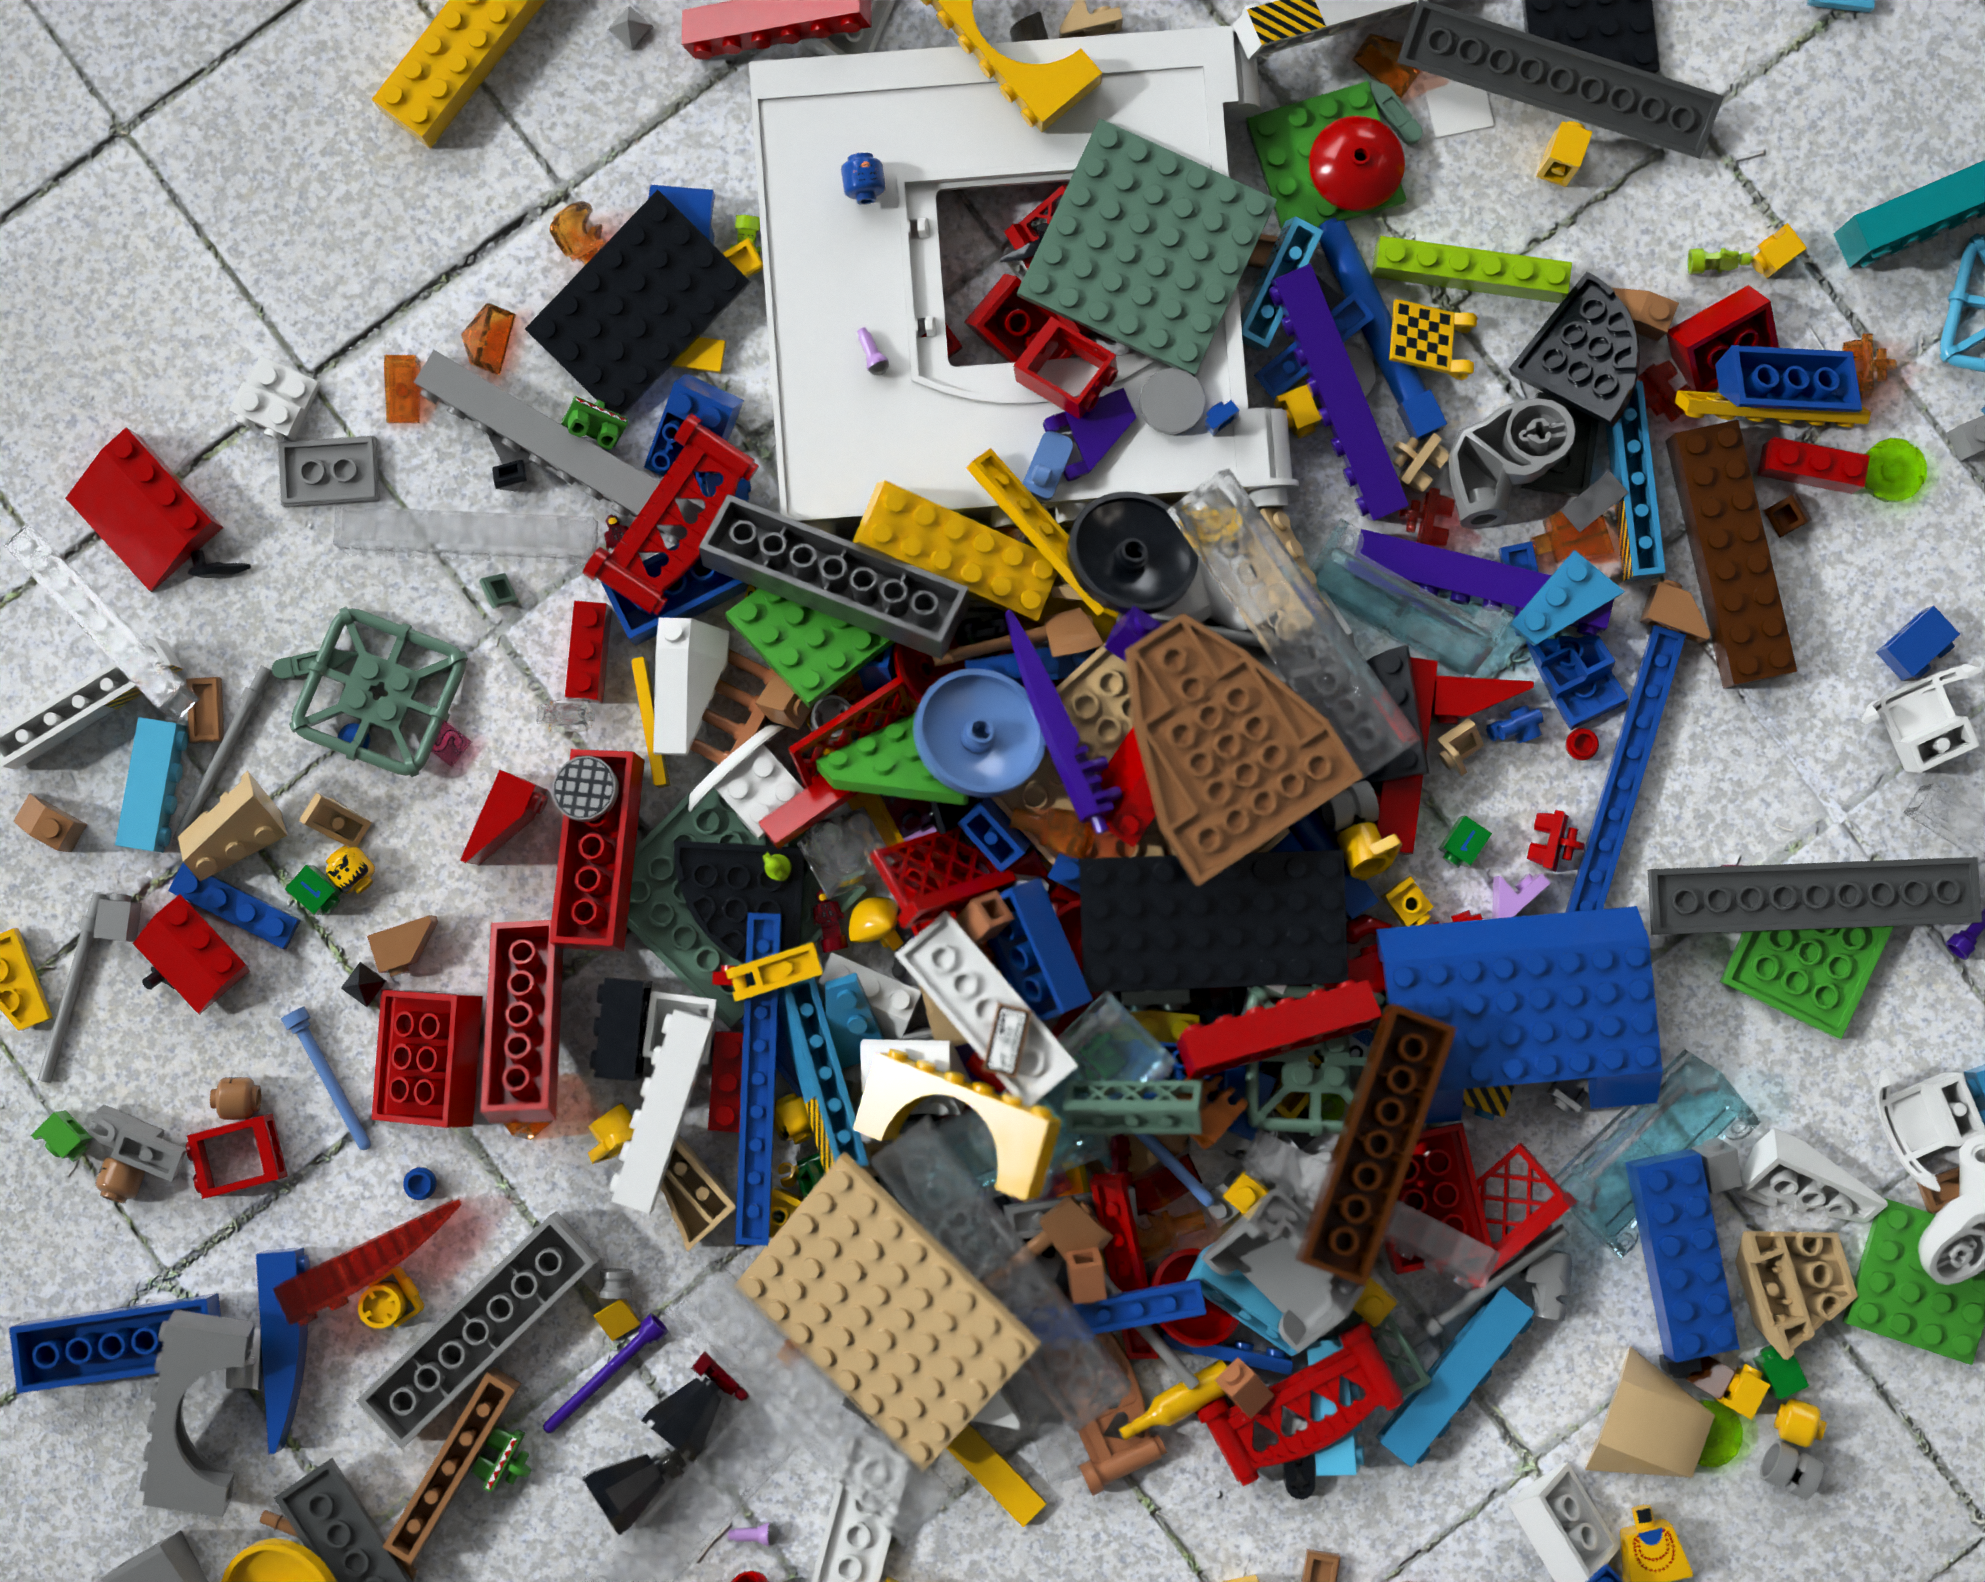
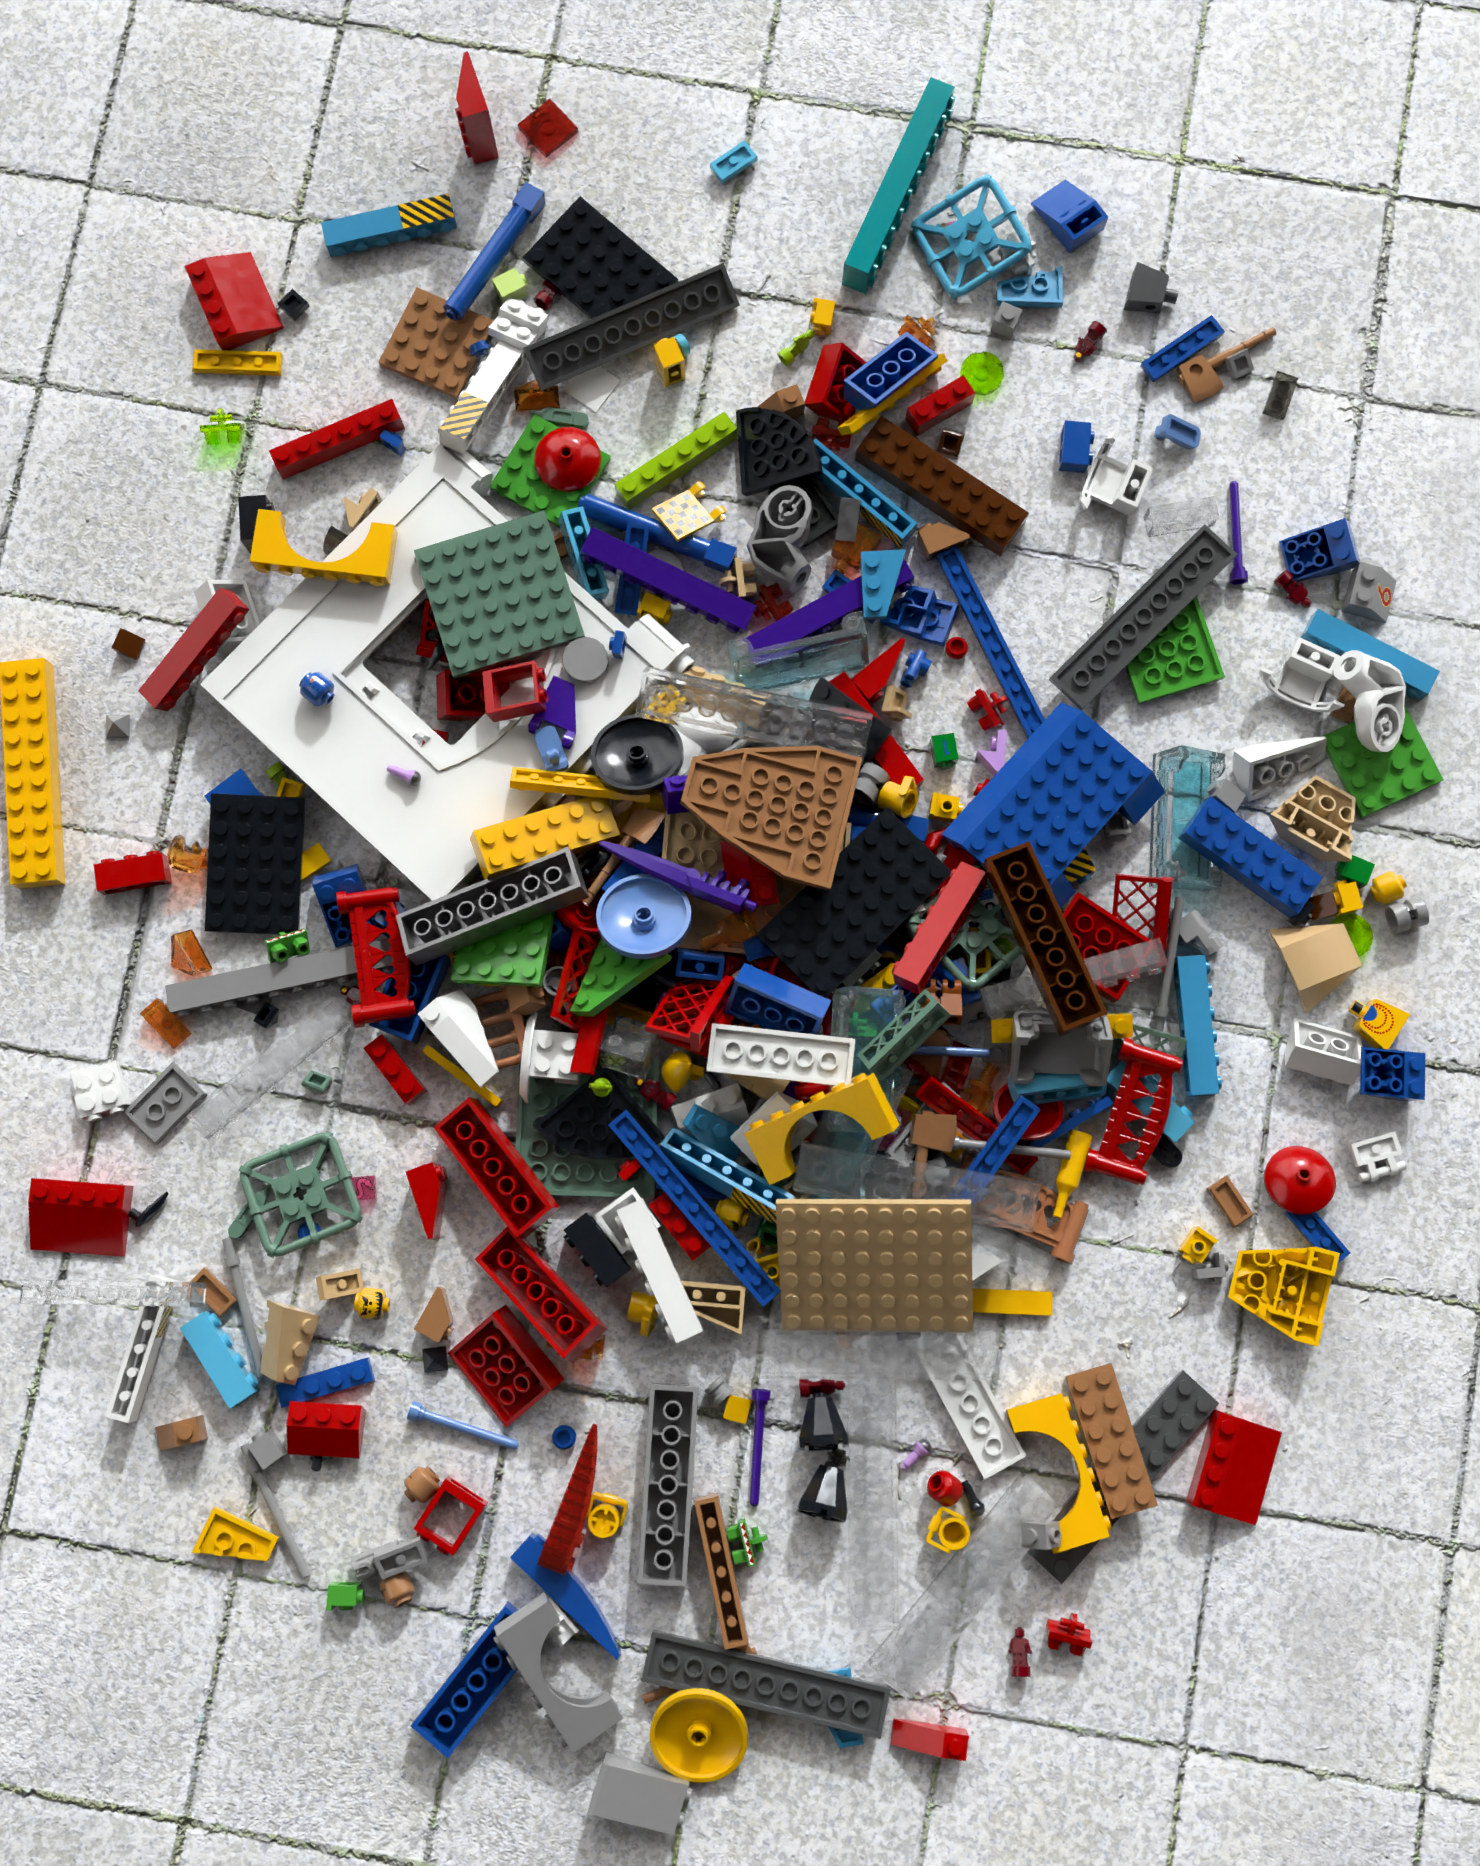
camera: 45 degrees left, 5 degrees down
(314, 890) = (362, 1332): green brick -> none
(506, 199) = (132, 873): none -> red brick
(566, 715) = (414, 1113): clear hips -> none
(585, 788) = (461, 1139): tile -> none
(776, 971) = (651, 1141): yellow plate -> none
(984, 917) = (735, 1009): nougat brick -> none
(1007, 1040) = (806, 1059): tile -> none
(1085, 1275) = (961, 1147): nougat brick -> none
(1244, 1387) = (1096, 1131): nougat brick -> none
(1595, 147) = (682, 344): none -> medium azure tile

